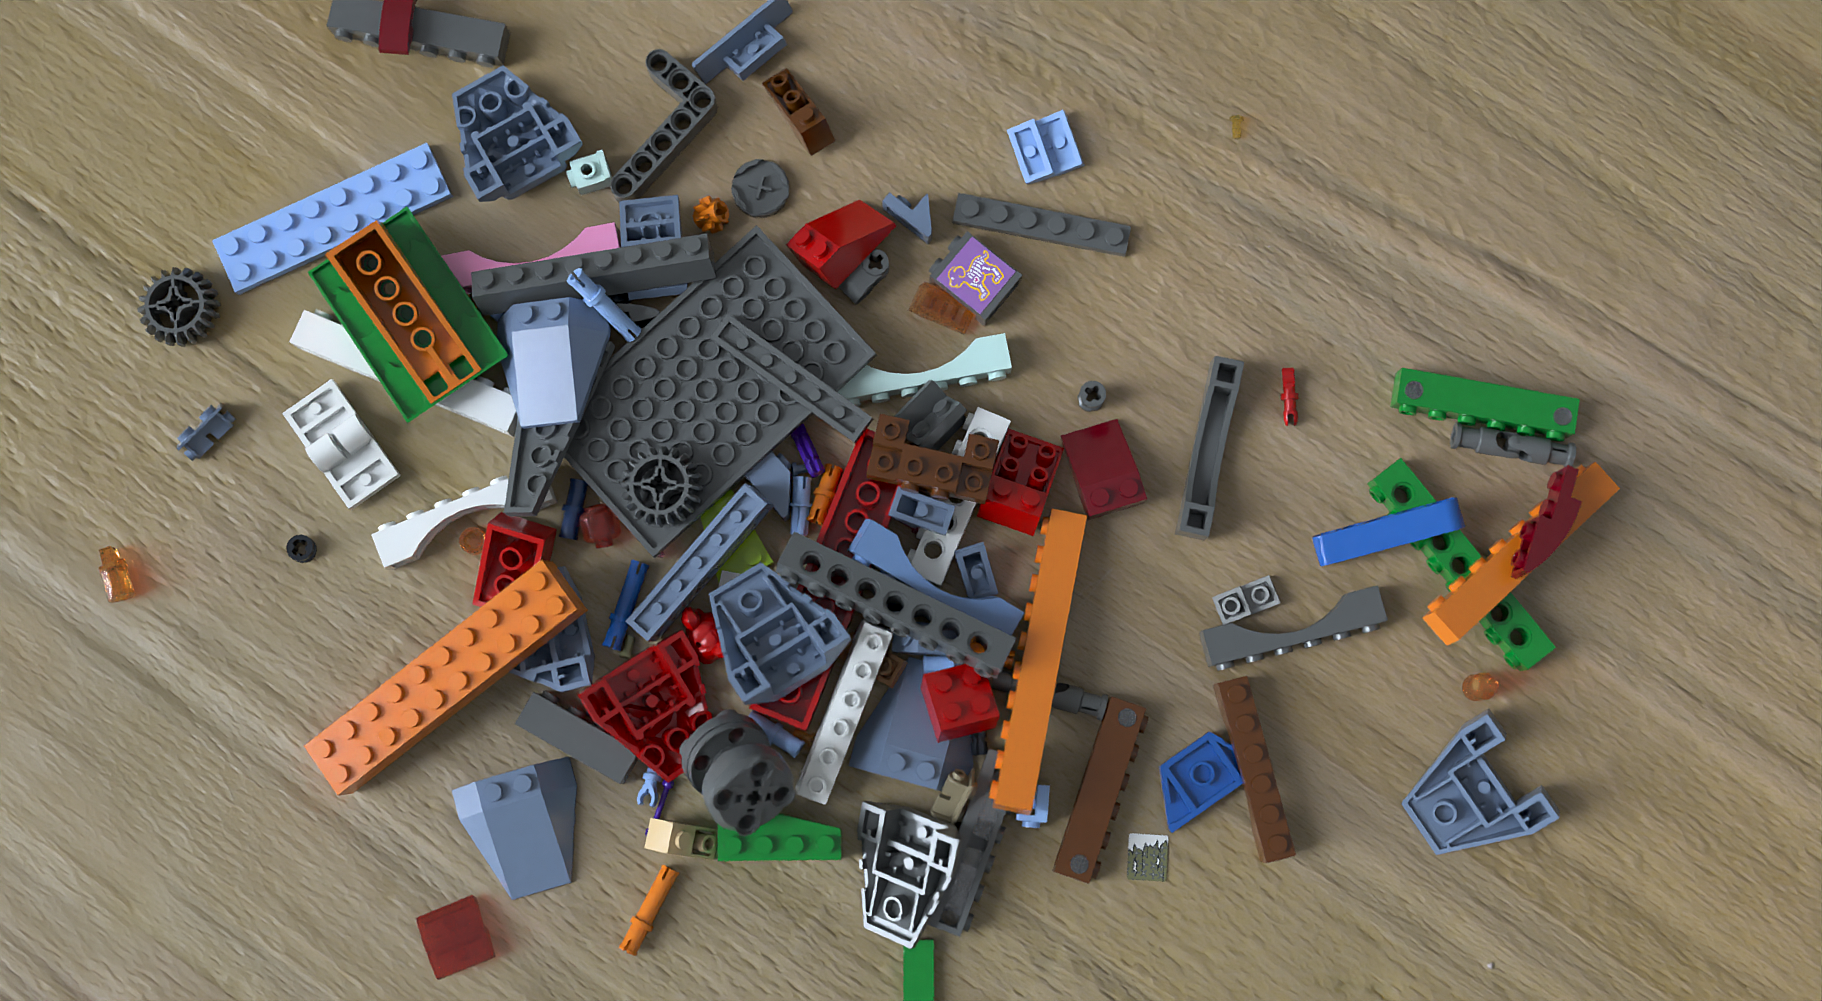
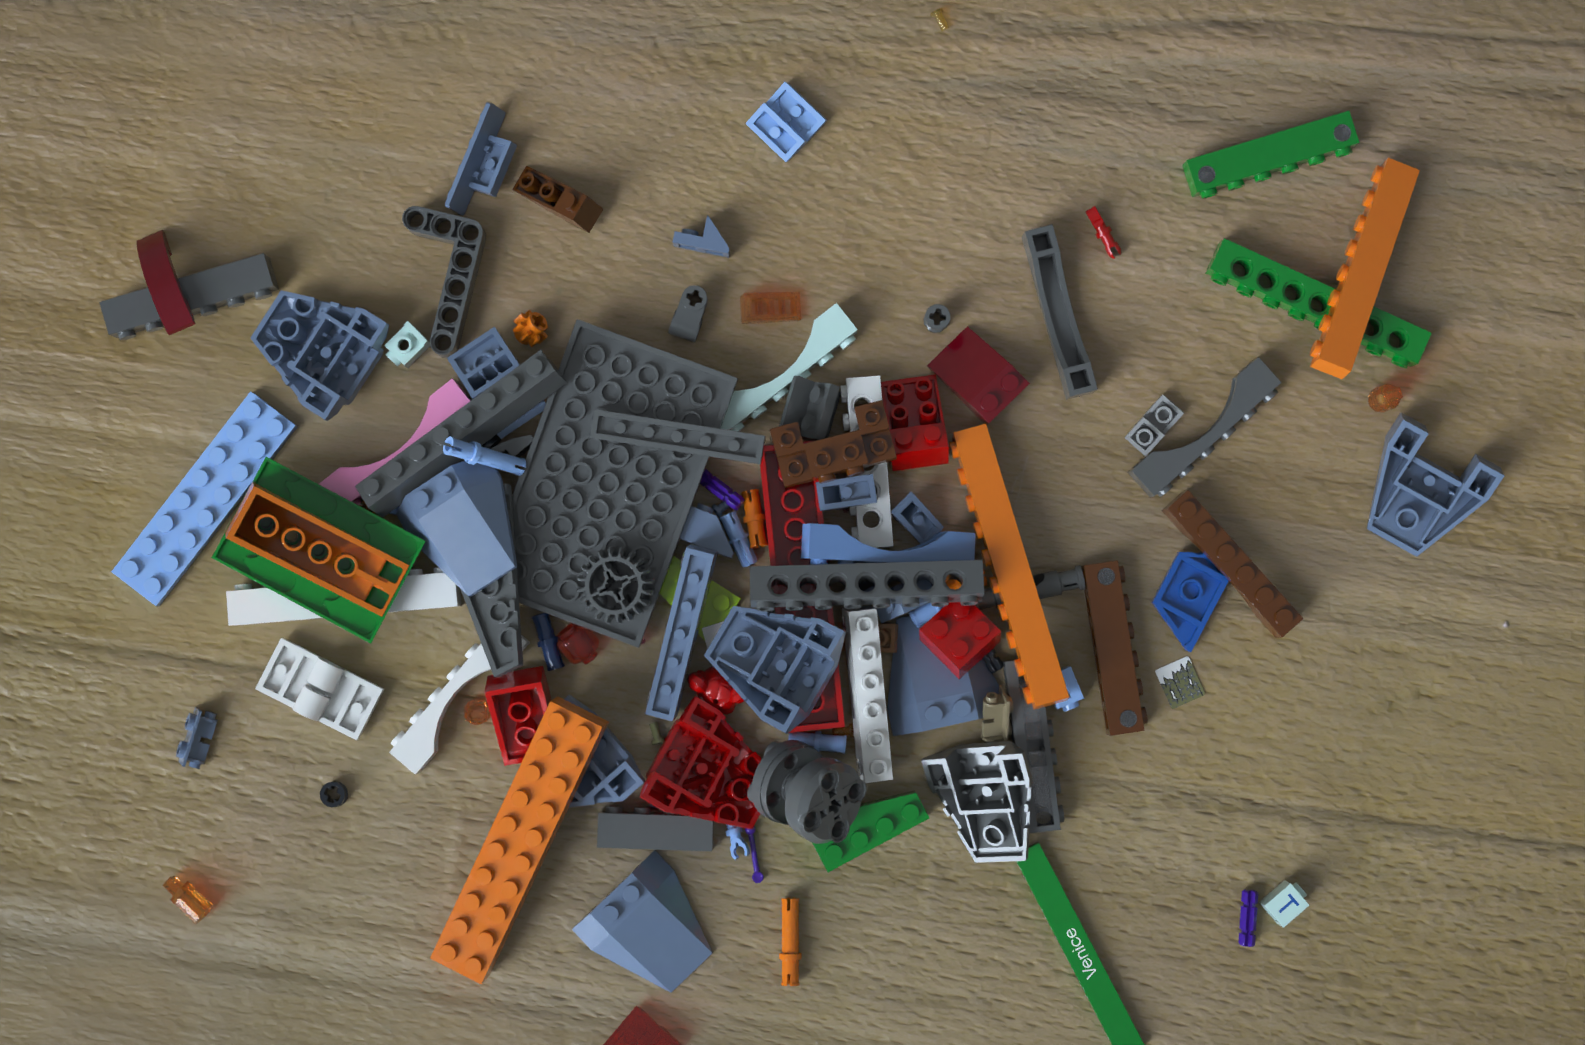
camera: 30 degrees left, 5 degrees up
(183, 328) = (107, 634): dark grey gear -> none
(625, 605) = (635, 699): blue pin -> none
(681, 839) = (786, 869): tan slope -> none
(760, 188) = (559, 283): dark grey tile -> none
(840, 241) = (654, 294): red slope -> none
(975, 276) = (784, 266): panel -> none
(1041, 224) = (817, 191): dark grey plate -> none
(1388, 531) = (1245, 307): blue beam -> none
(1528, 448) = (1326, 174): dark grey piece -> none
(1548, 530) = (1378, 243): dark red slope -> none

